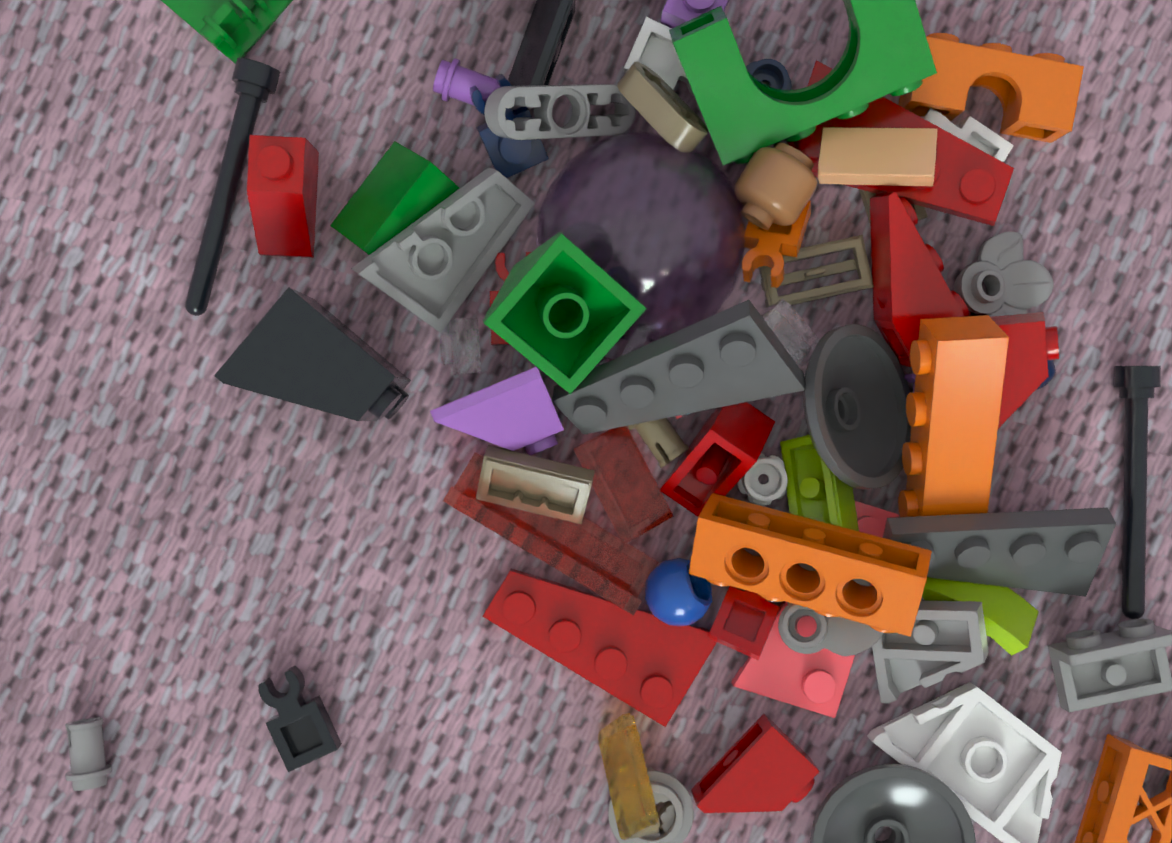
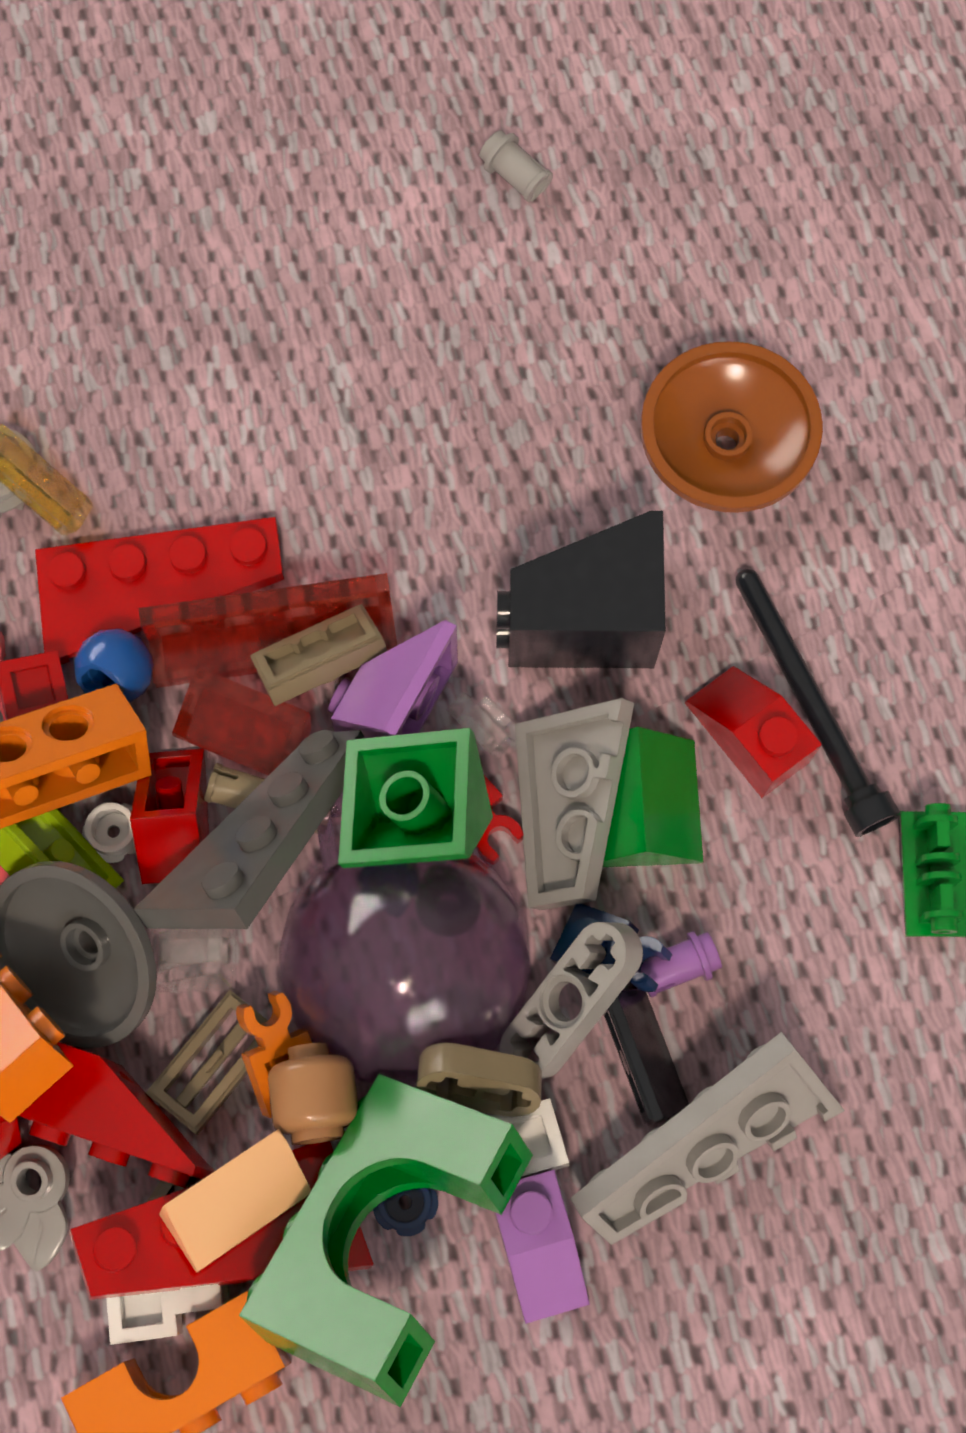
camera: 140 degrees right, 15 degrees down
(74, 423) = (735, 394): none -> dark orange dish
(301, 728) = (359, 312): black plate -> none

